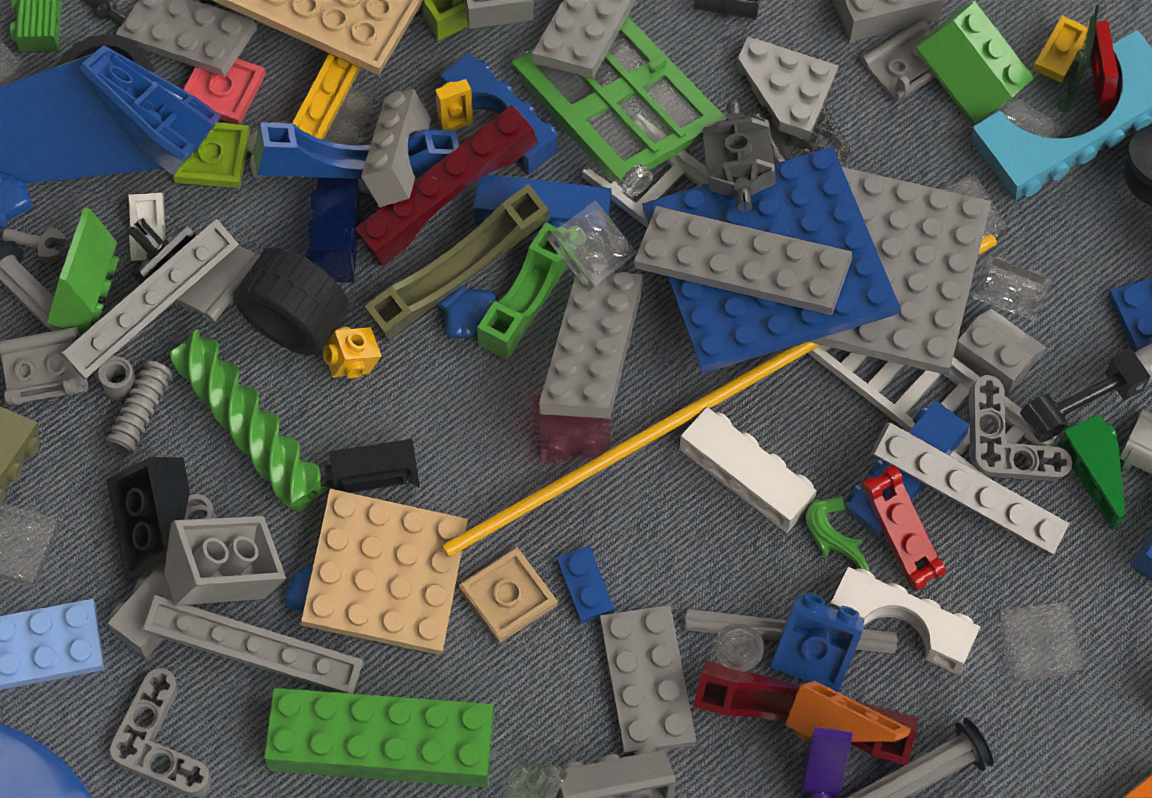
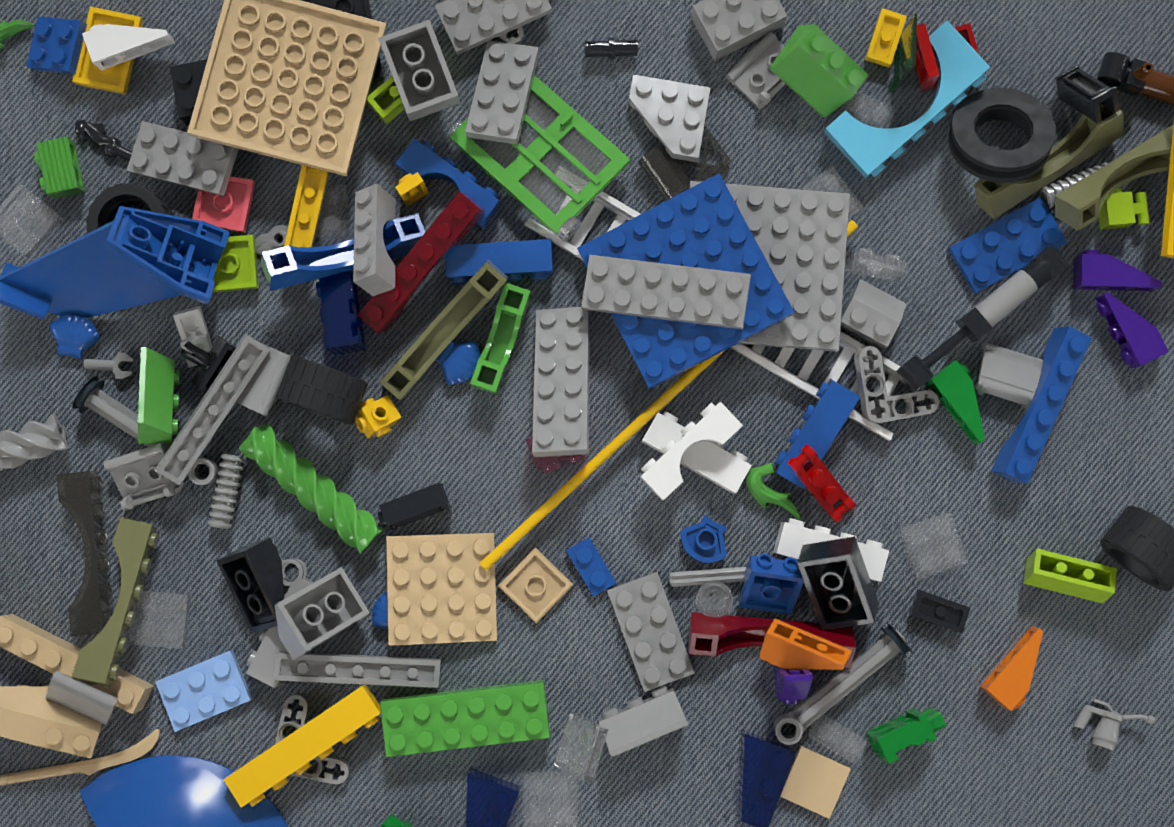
camera: 10 degrees left, 20 degrees up
(159, 727) = (303, 745): none -> yellow brick
(591, 245) = (545, 295): clear plate -> none
(739, 580) = (704, 541): none -> blue animal
(741, 170) = (649, 212): dark grey plate -> none
(775, 430) = (715, 426): none -> white arch
(906, 648) = (838, 583): none -> black brick
(969, 488) = (865, 443): light grey plate -> none
(1038, 723) = (939, 611): none -> black plate

